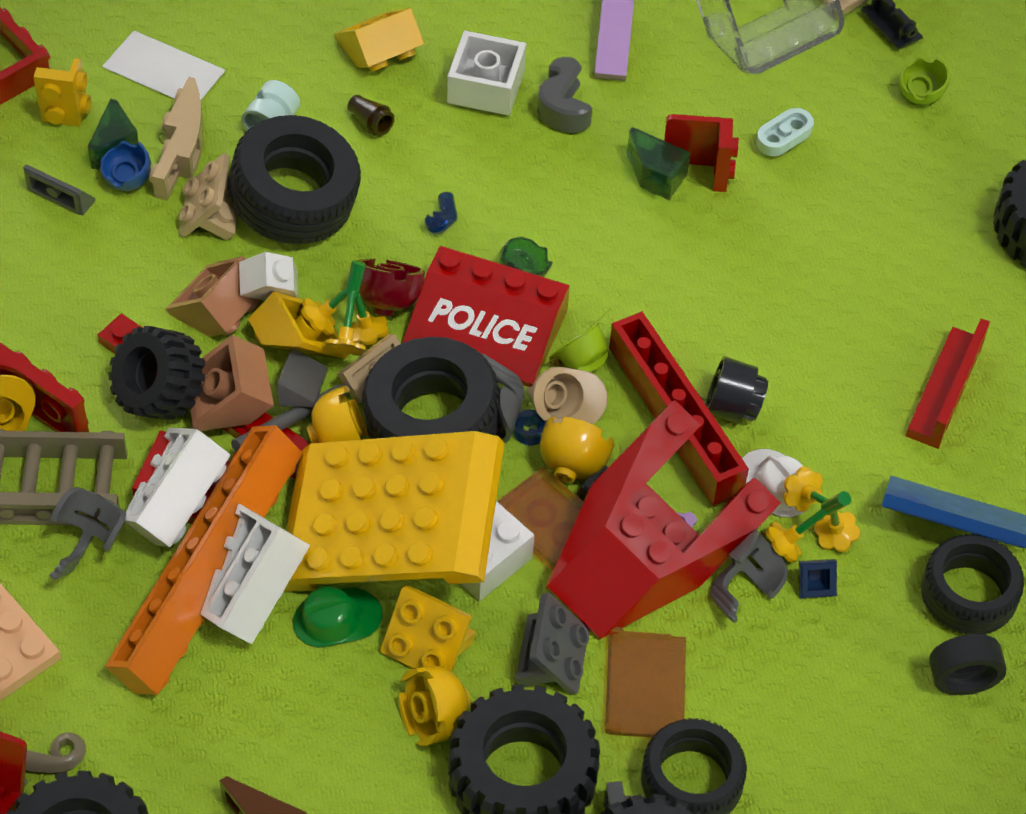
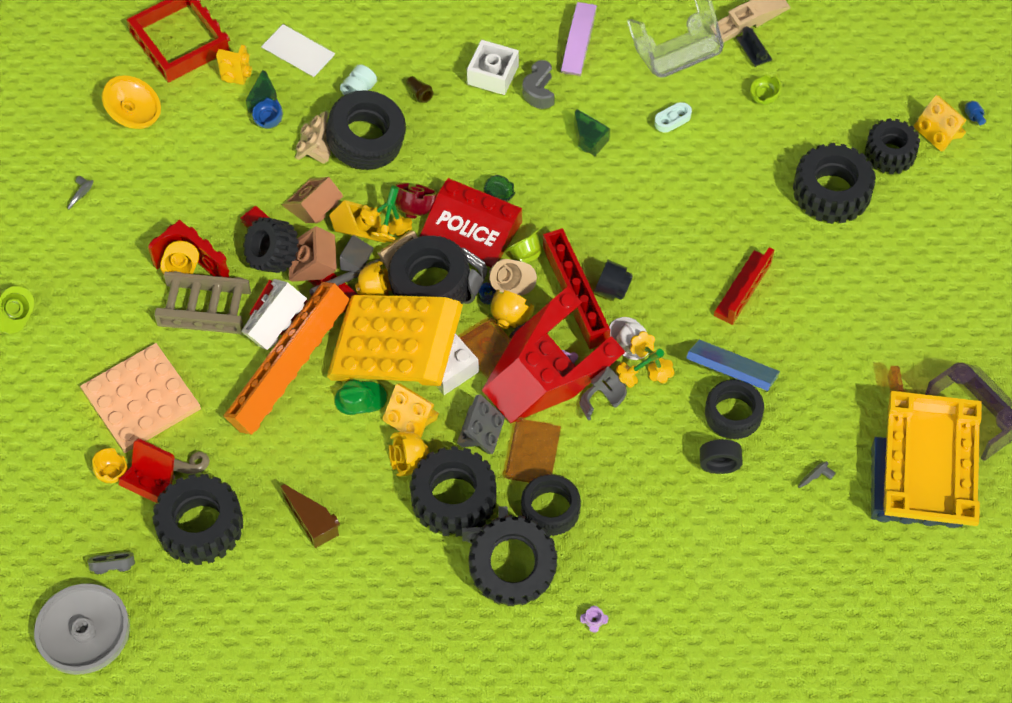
camera: 10 degrees right, 5 degrees up
(57, 191) = (226, 126): dark grey slope -> none
(86, 502) = (224, 320): dark grey helmet -> none
(183, 141) = (304, 99): tan slope -> none
(253, 575) = (313, 369): white wedge -> none
(266, 274) = (343, 189): white slope -> none
(381, 38) = (432, 40): yellow slope -> none
(445, 217) = (456, 158): arm -> none
(708, 141) = (621, 122): red bracket -> none
(818, 578) = (643, 398): dark blue slope -> none

